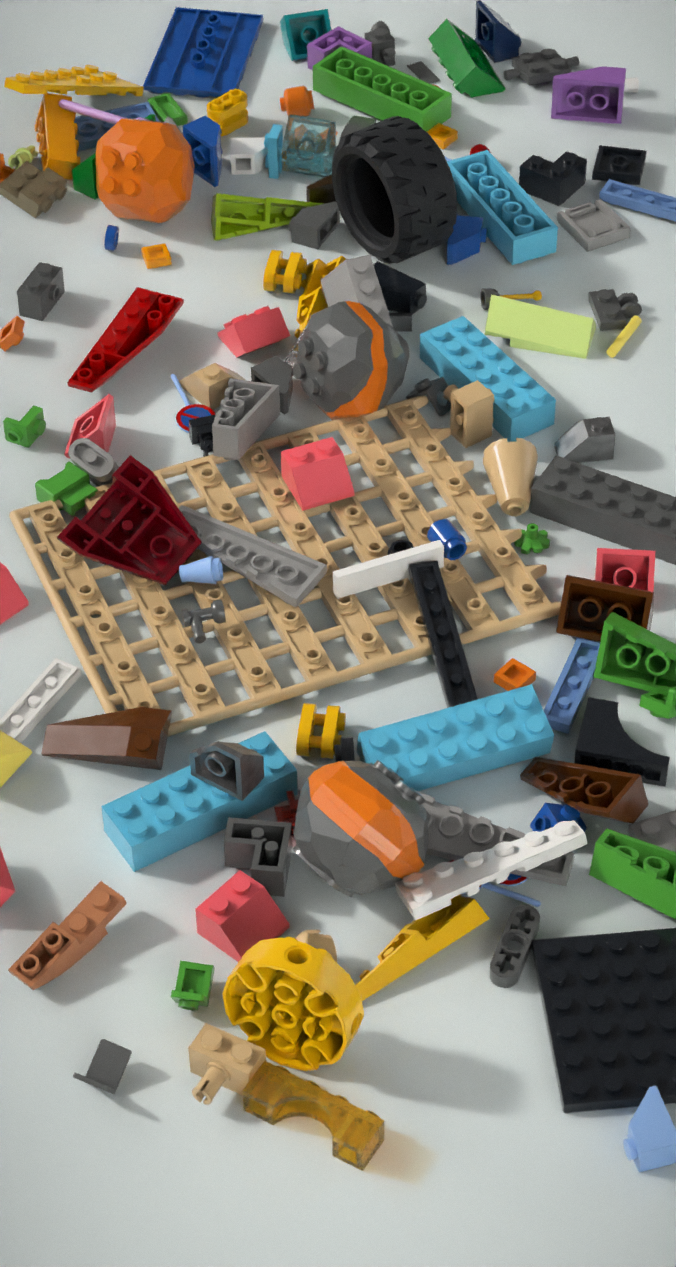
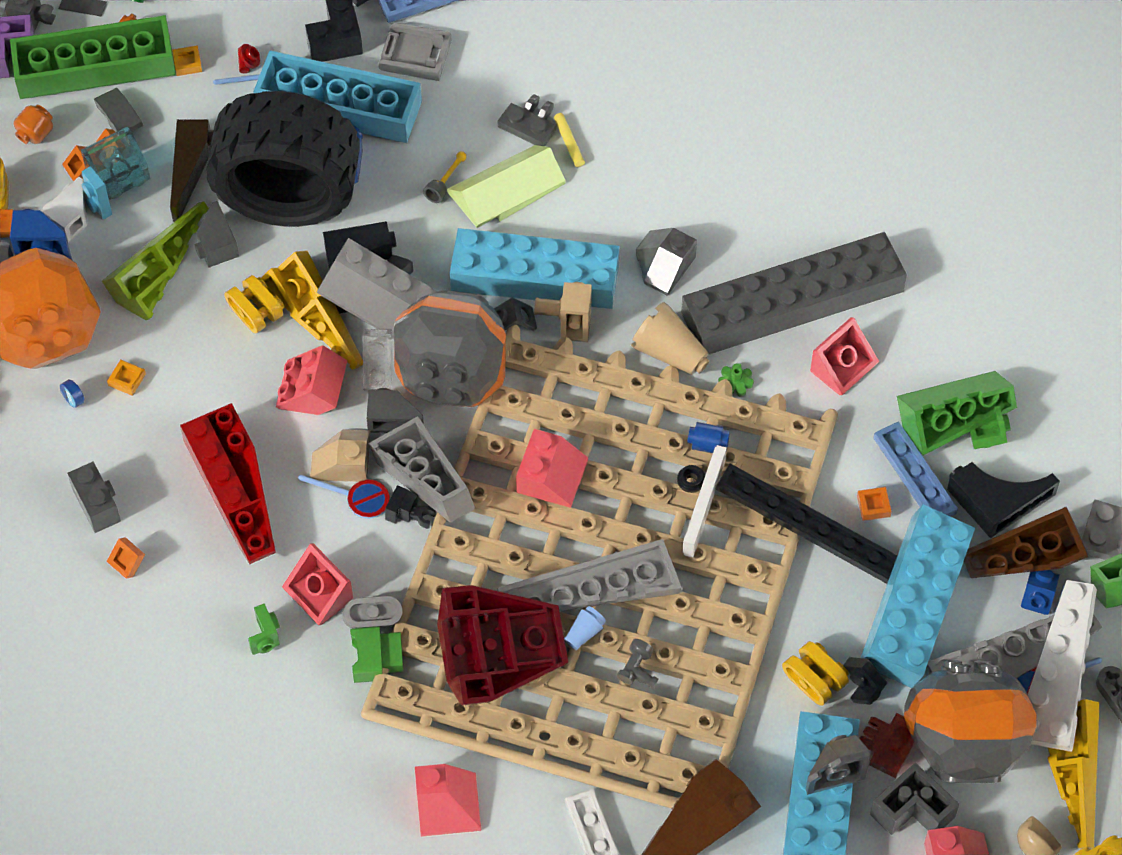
camera: 50 degrees left, 15 degrees up
(590, 602) = (875, 402): reddish brown slope -> none

